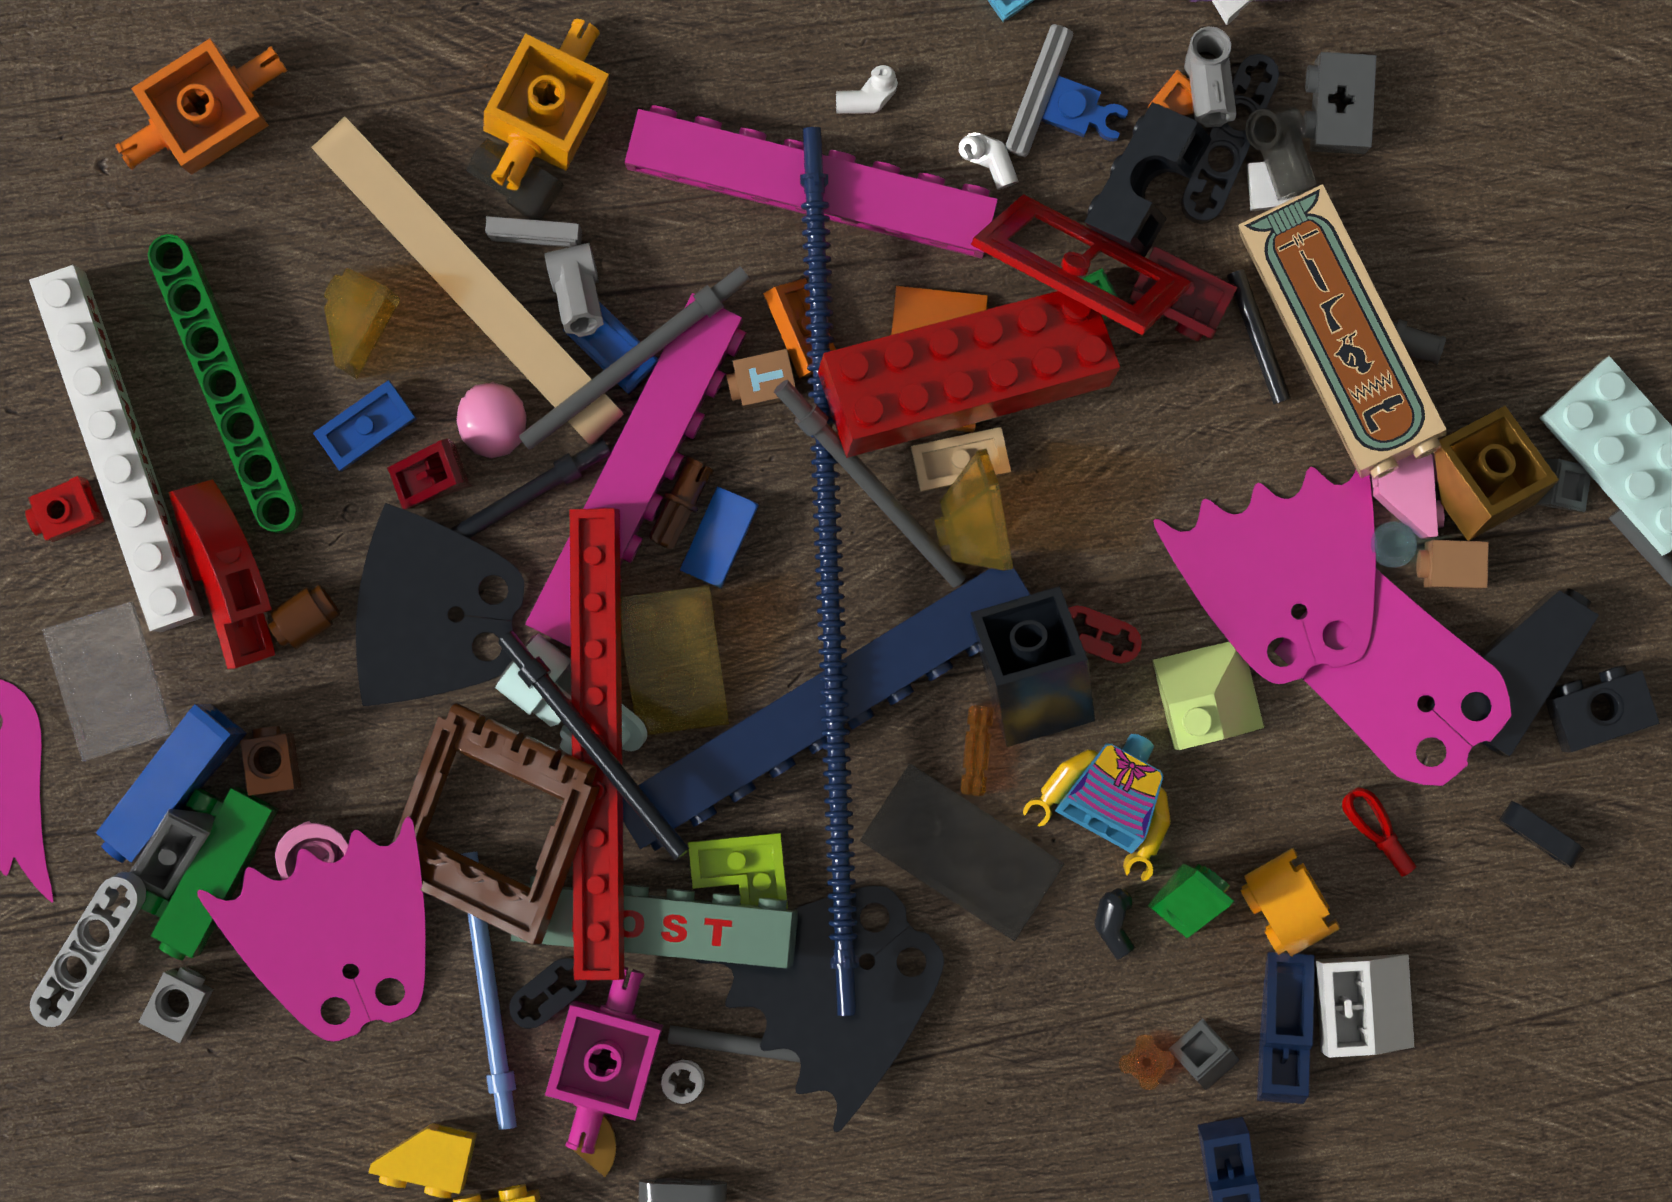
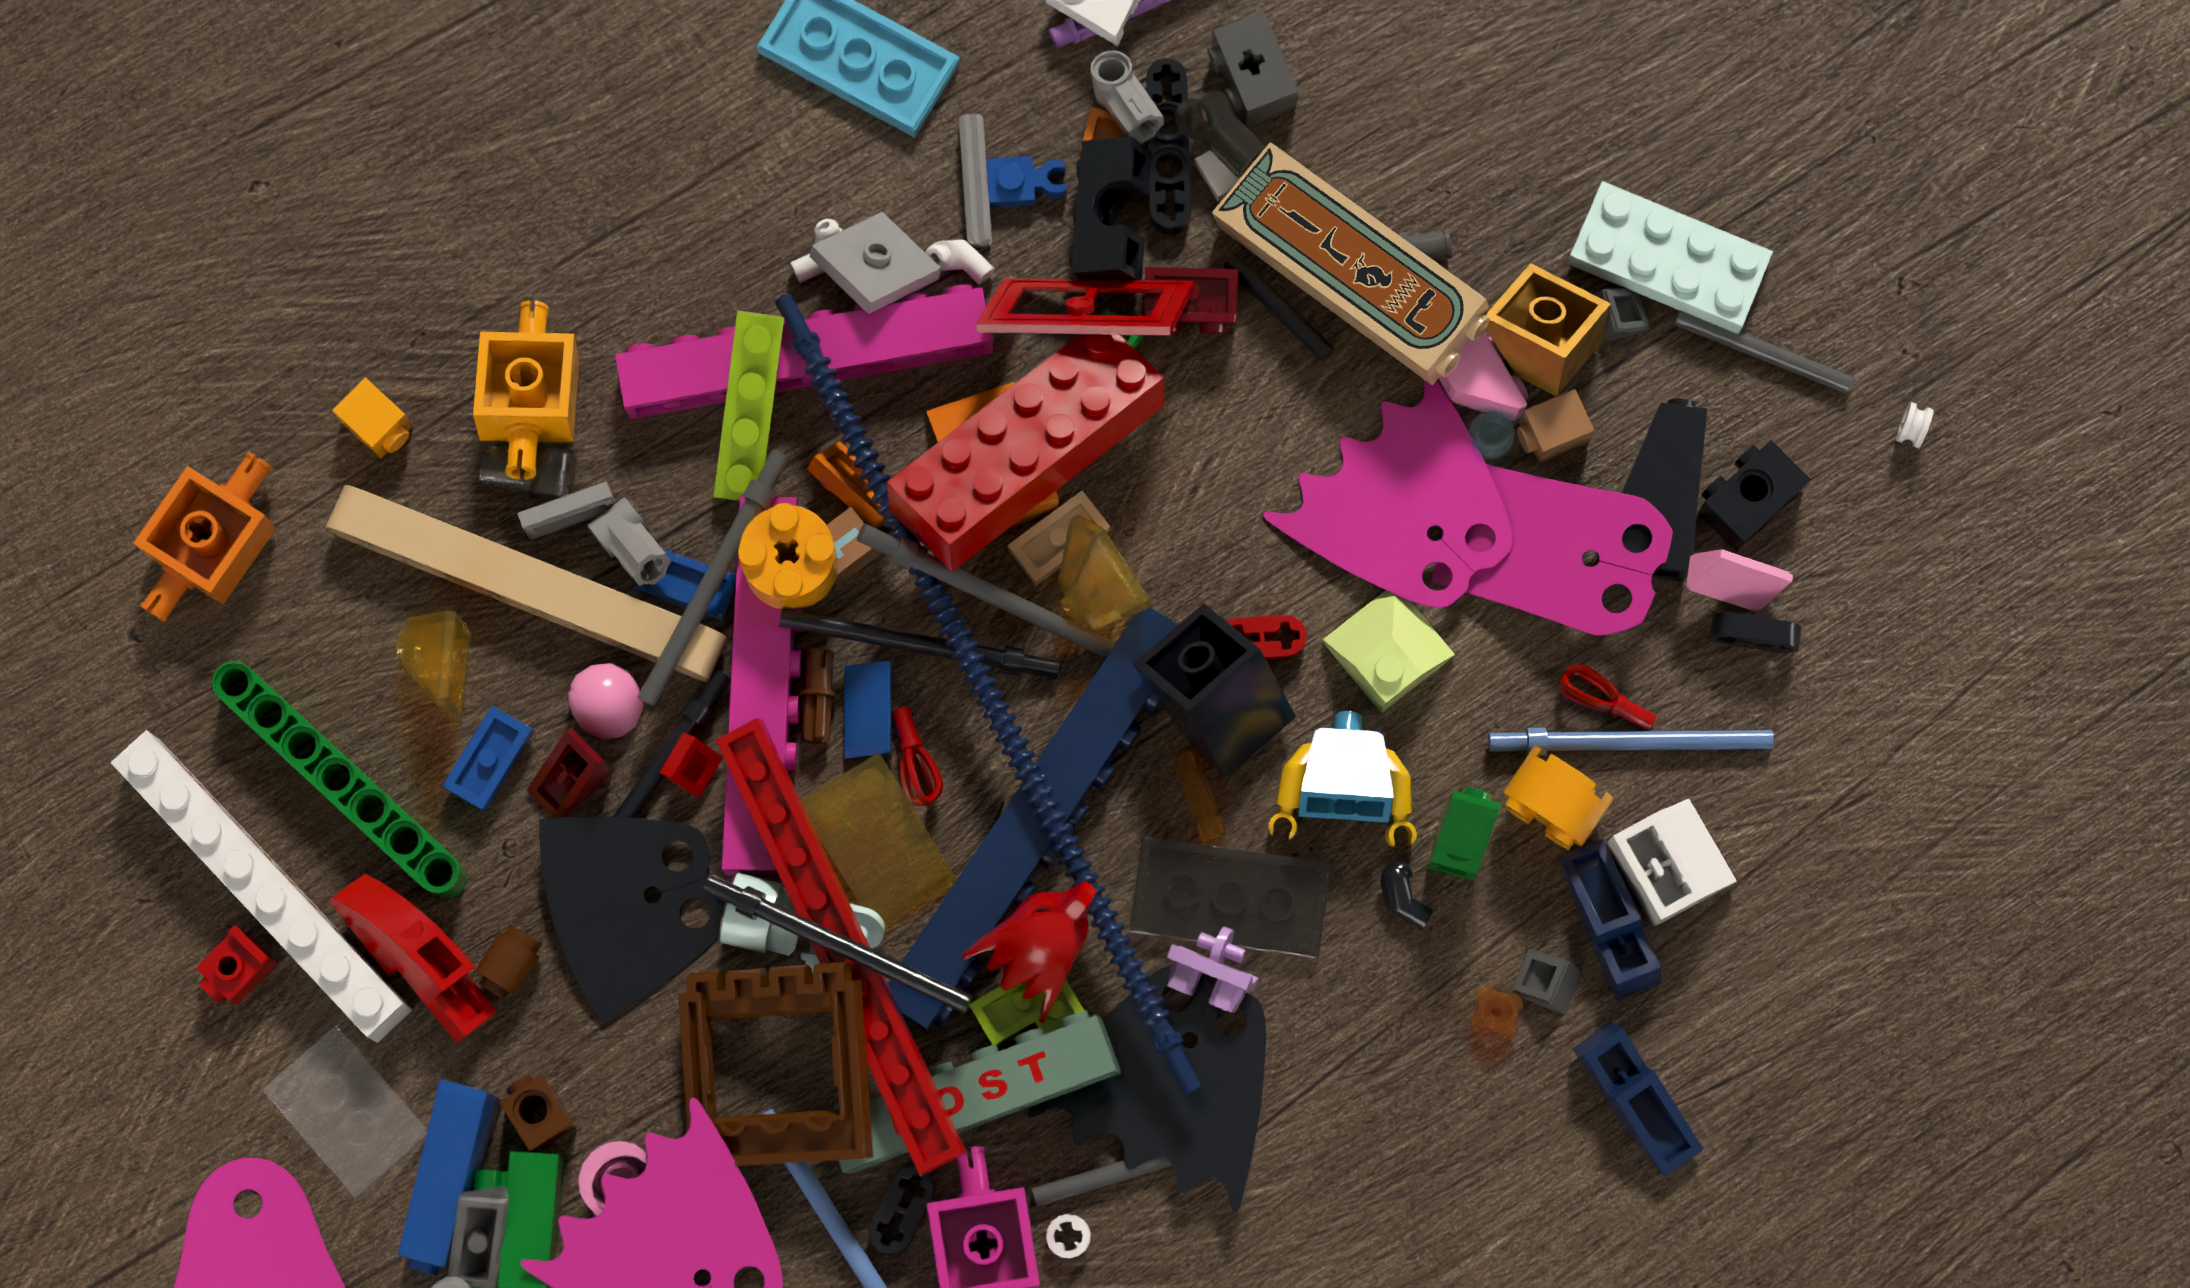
camera: 25 degrees left, 10 degrees down
(397, 66) = (374, 419): none -> light orange brick
(540, 515) = (691, 765): none -> red plate
(719, 349) = (781, 531): none -> light orange brick
(737, 210) = (748, 402): none -> lime plate
(742, 586) = (910, 746): none -> red piece
(770, 828) = (1041, 944): none -> red piece
(864, 550) = (1010, 660): none -> black bar
(899, 898) = (1190, 965): none -> lavender hips
(911, 129) = (875, 262): none -> light grey plate
(1303, 842) = (1629, 740): none -> medium blue bar
(1546, 781) = (1735, 579): none -> bright pink slope

